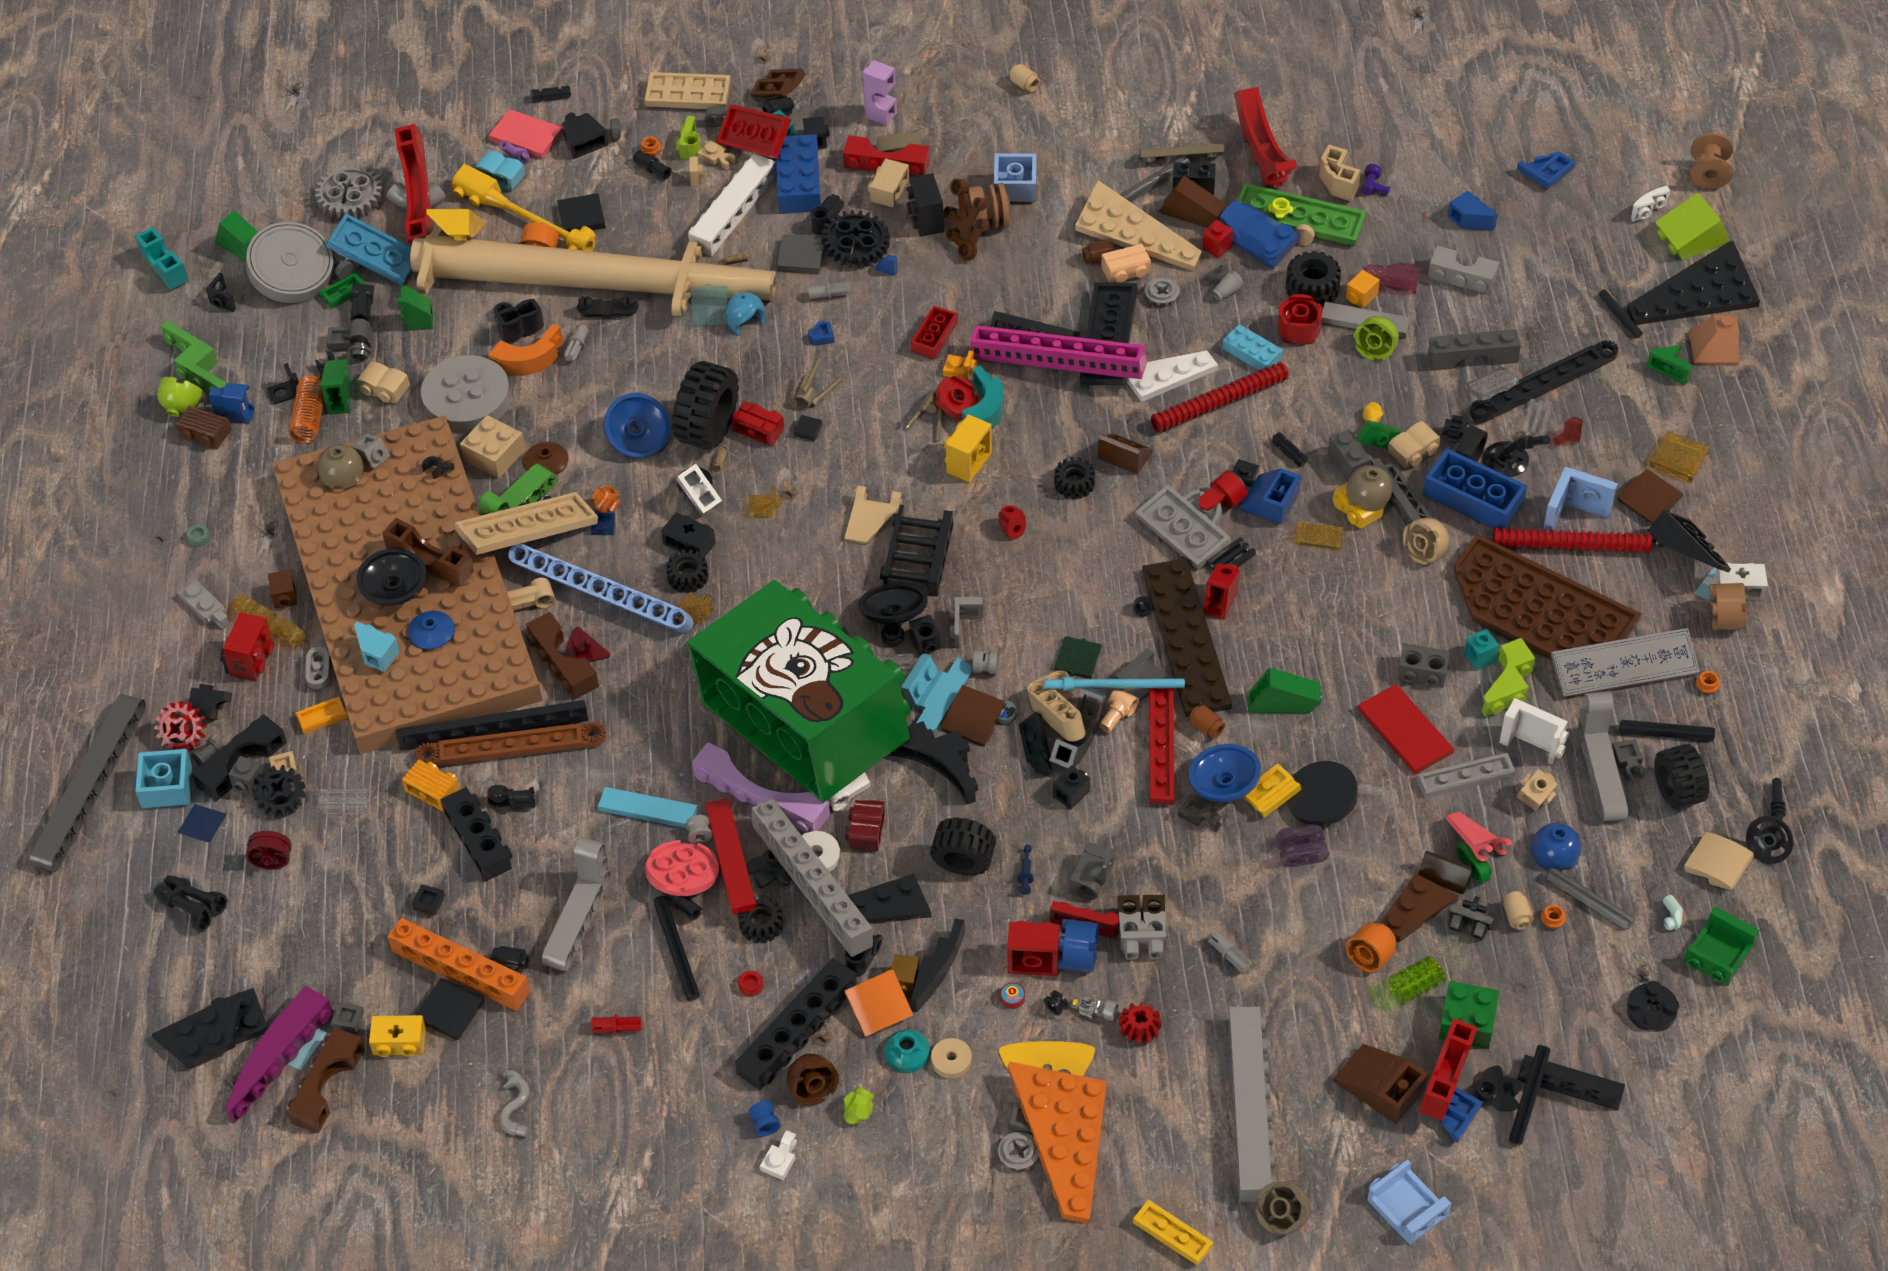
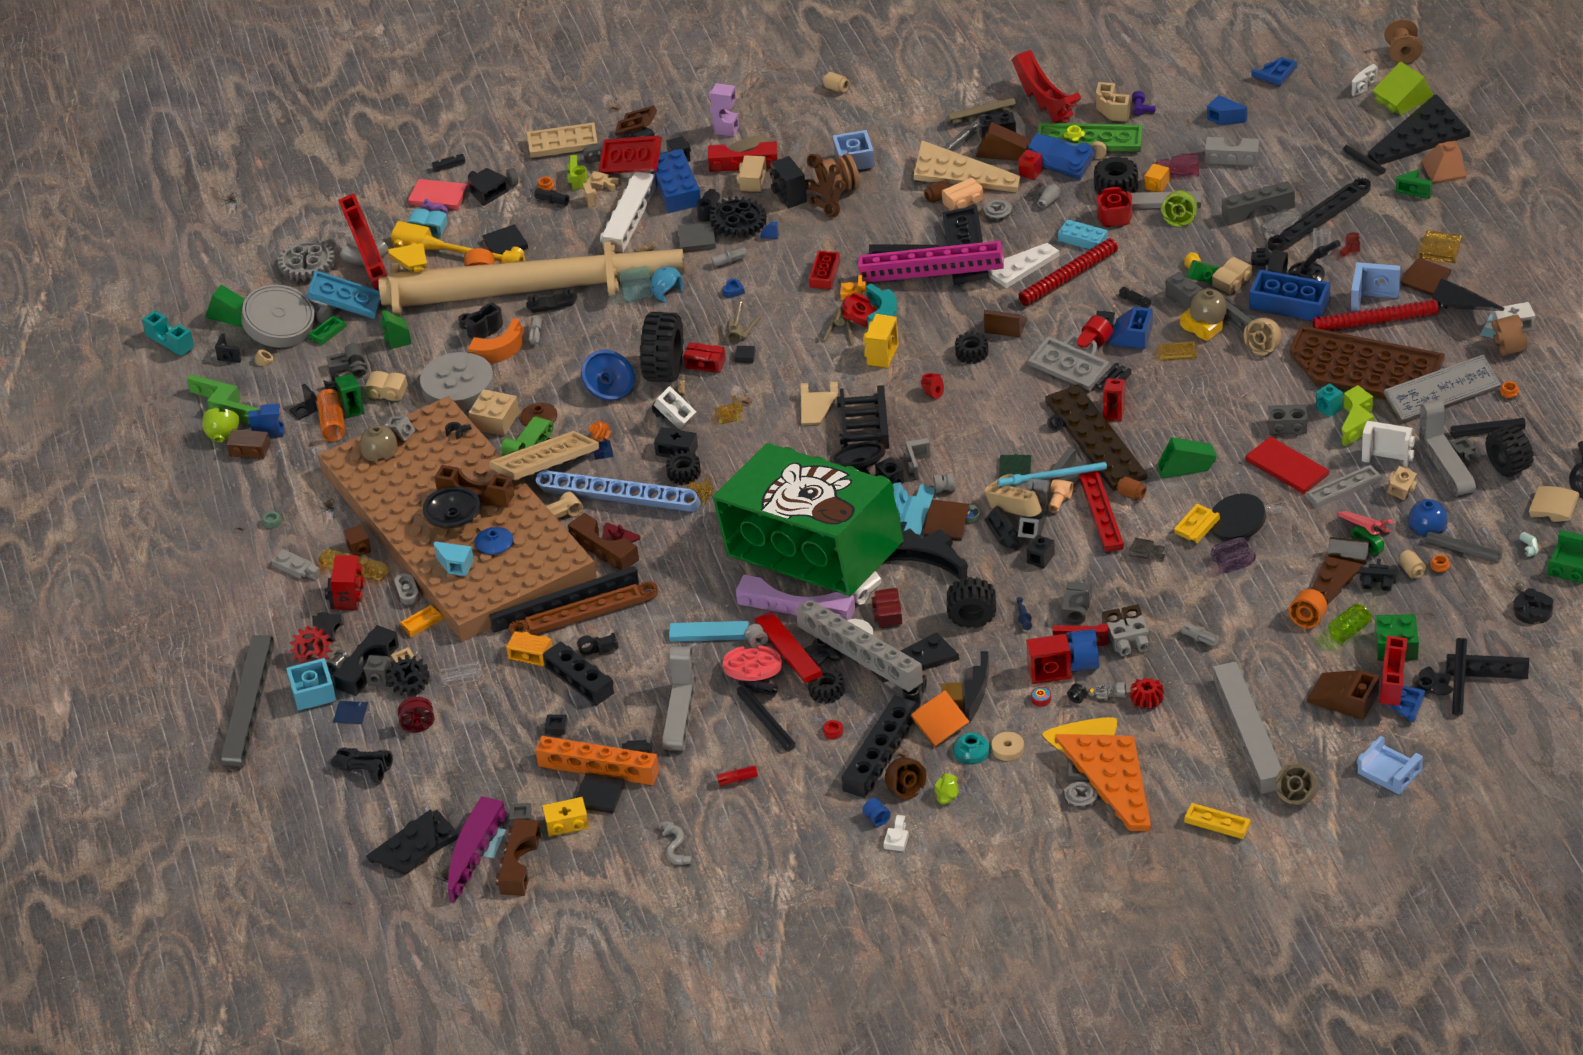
camera: 10 degrees left, 10 degrees down
(256, 316) = (261, 358): none -> tan piece
(361, 301) = (346, 331): black piece -> none
(1224, 772) = (1158, 517): blue dish -> none

